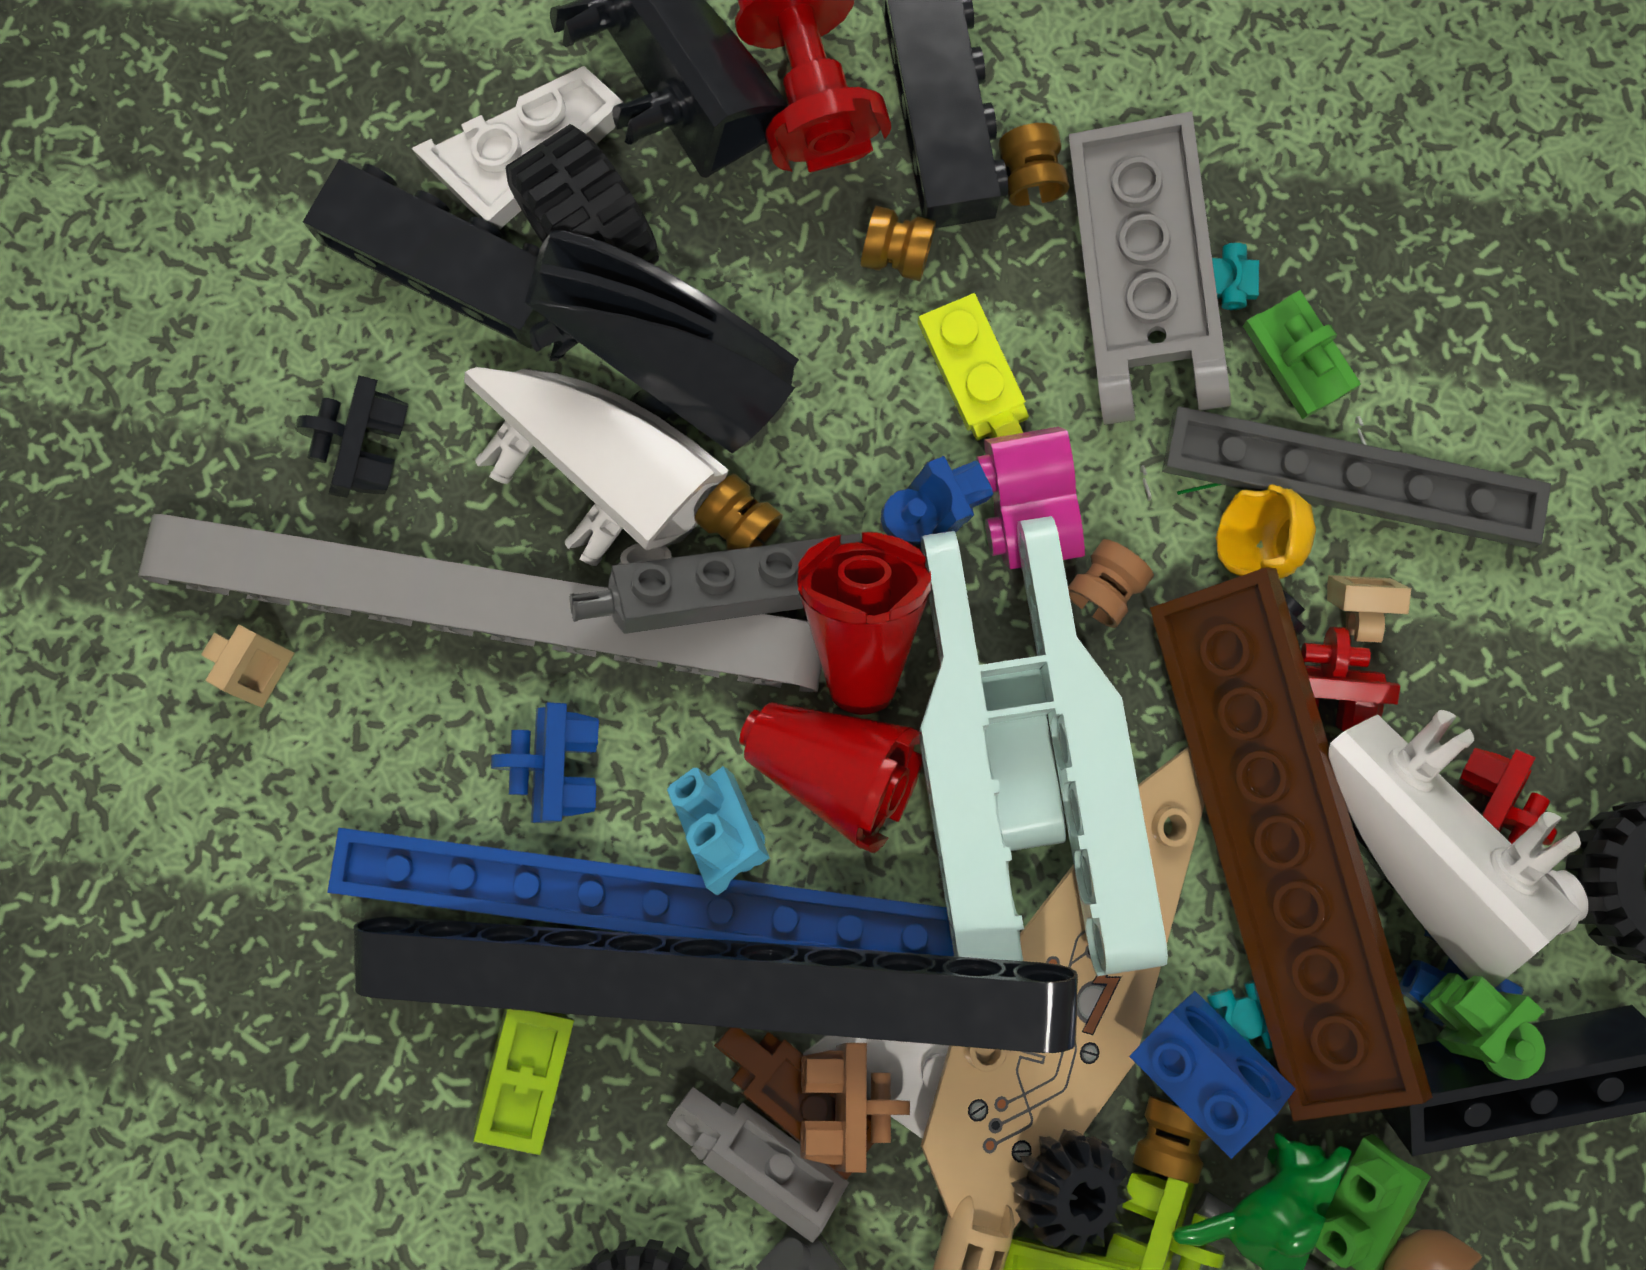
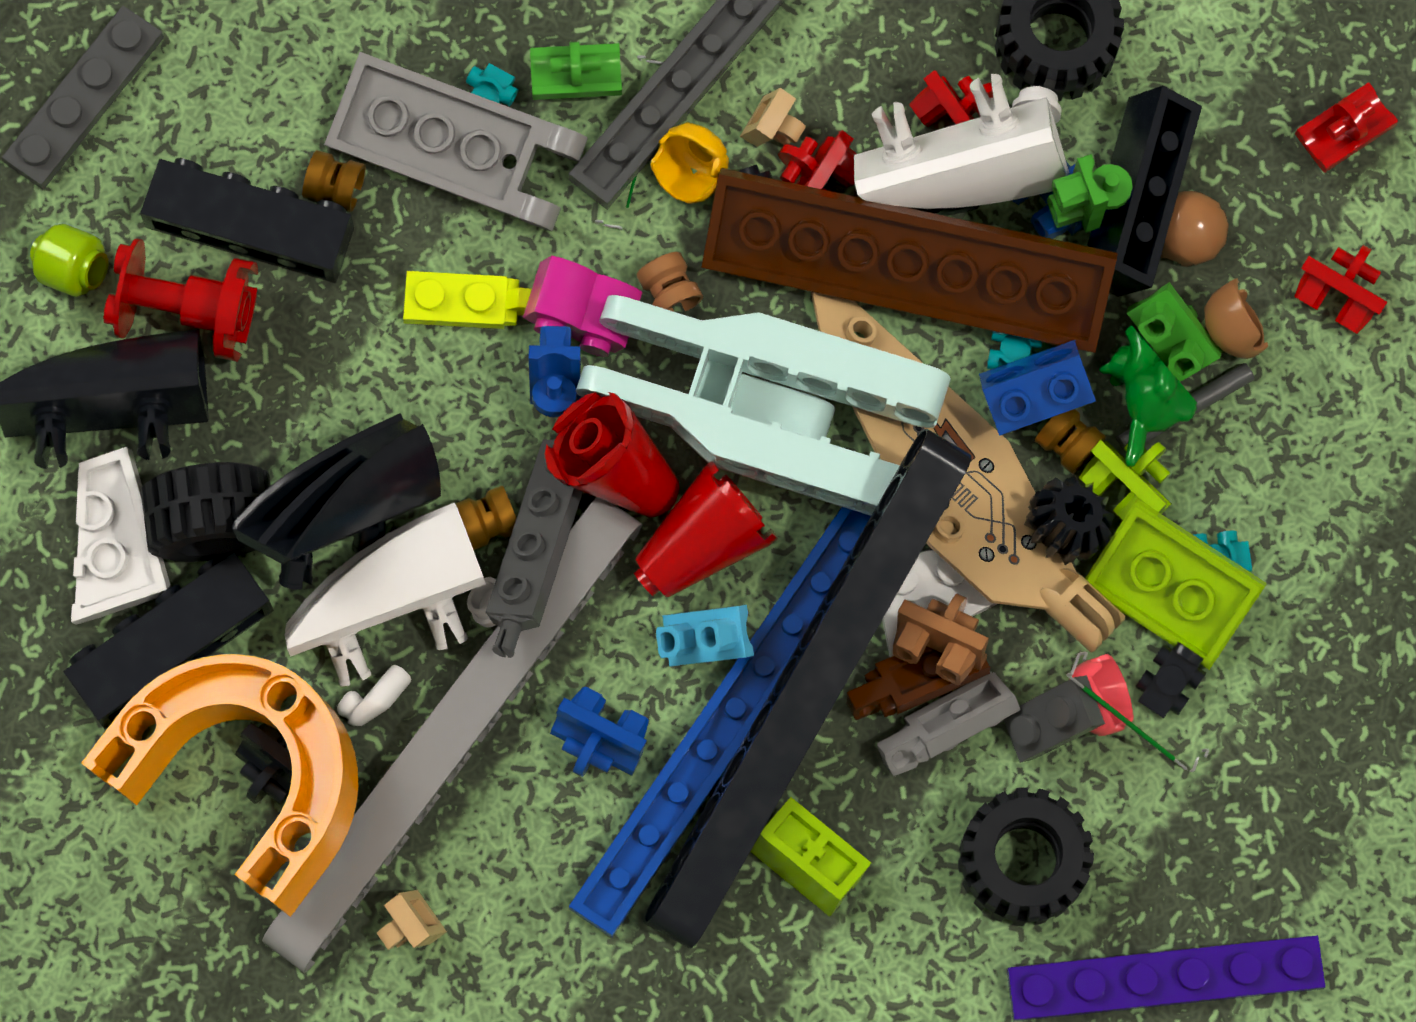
camera: 70 degrees left, 5 degrees down
(368, 457) = (253, 689): none -> light orange piece
(480, 505) = (379, 699): none -> white arm
(899, 243) = (345, 301): pearl gold wheel -> none
(1514, 1170) = (1195, 230): none -> medium nougat hair

